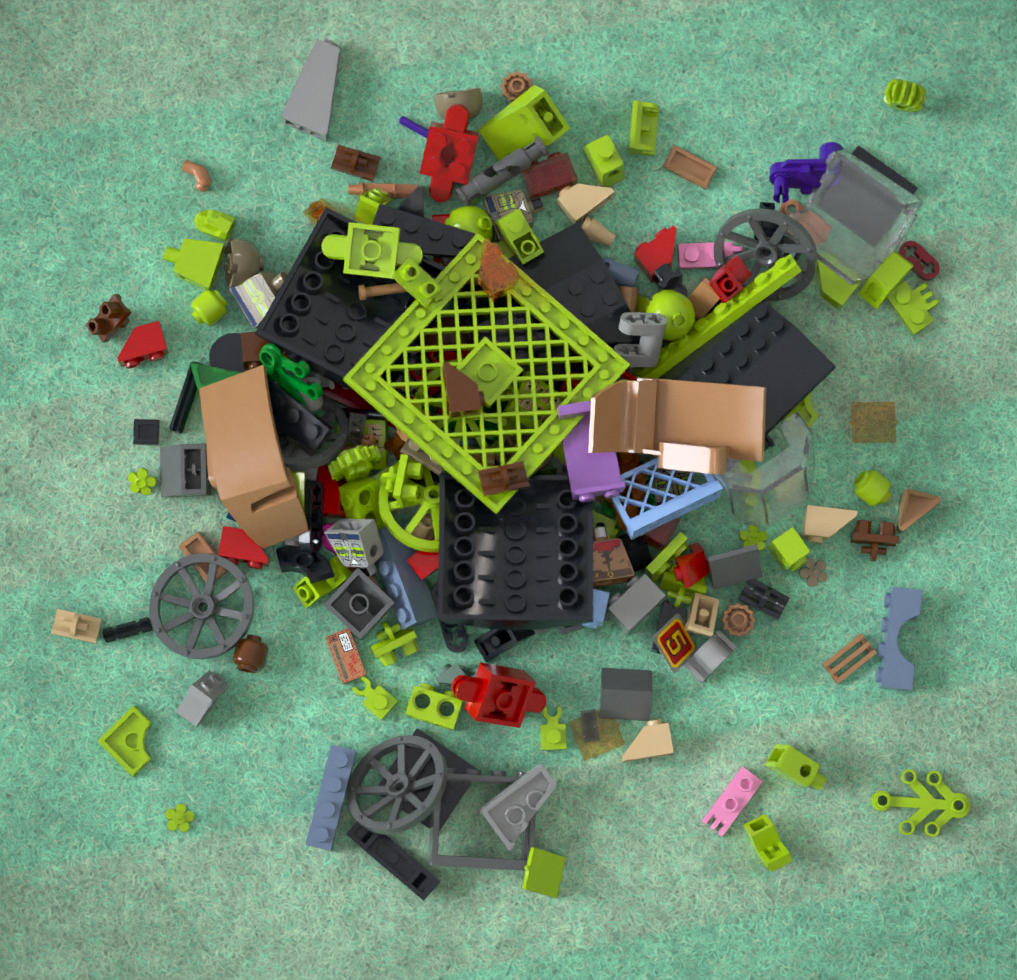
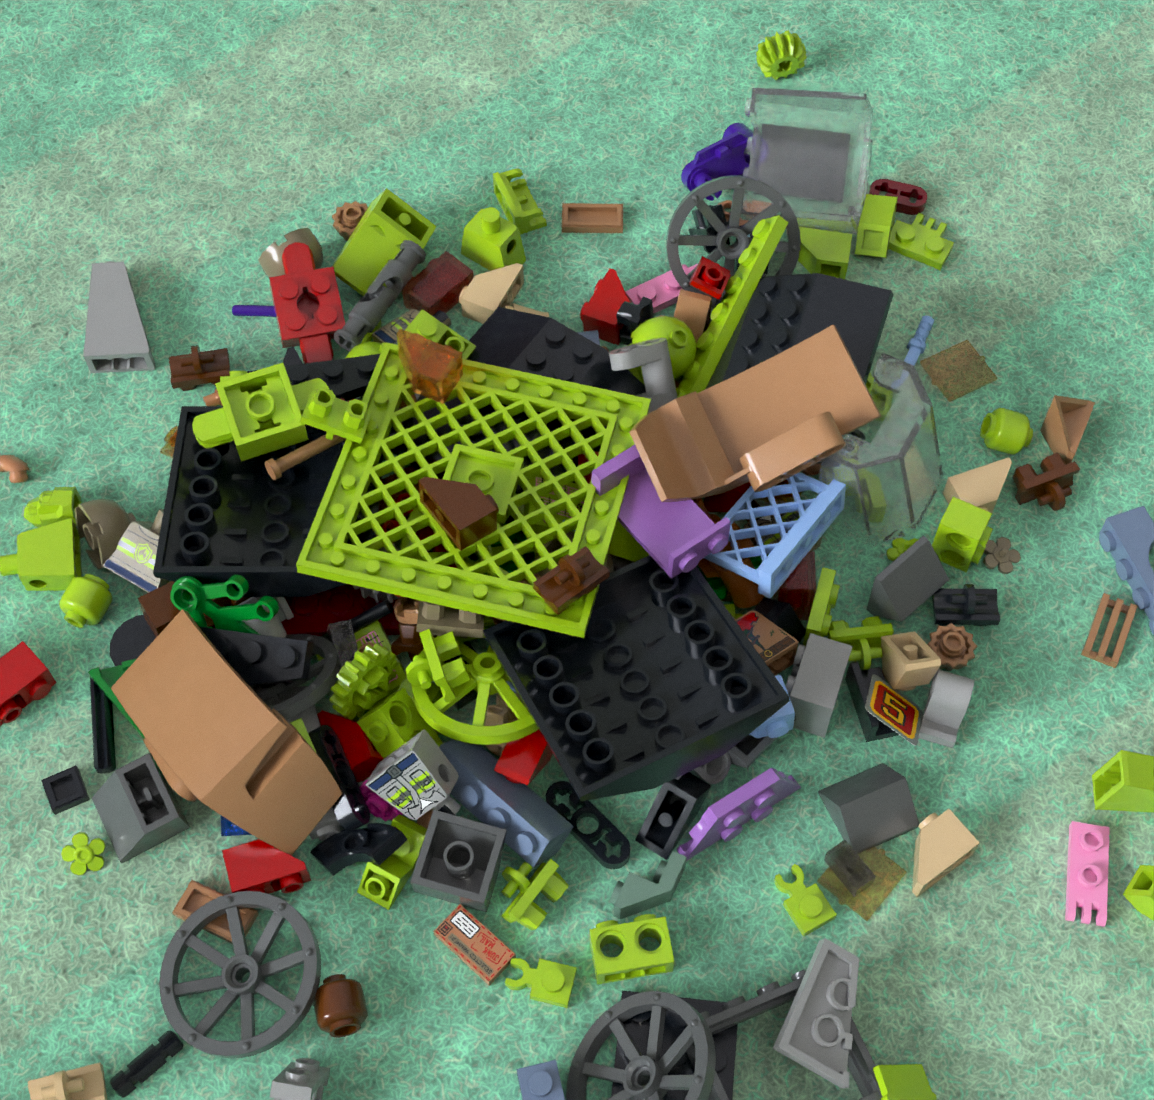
camera: 20 degrees left, 20 degrees down
(499, 694) = (710, 882): red brick -> none
(555, 657) = (728, 814): none -> medium lavender wing
(691, 566) = (858, 605): red slope -> none
(856, 389) = (917, 344): none -> light blue piece

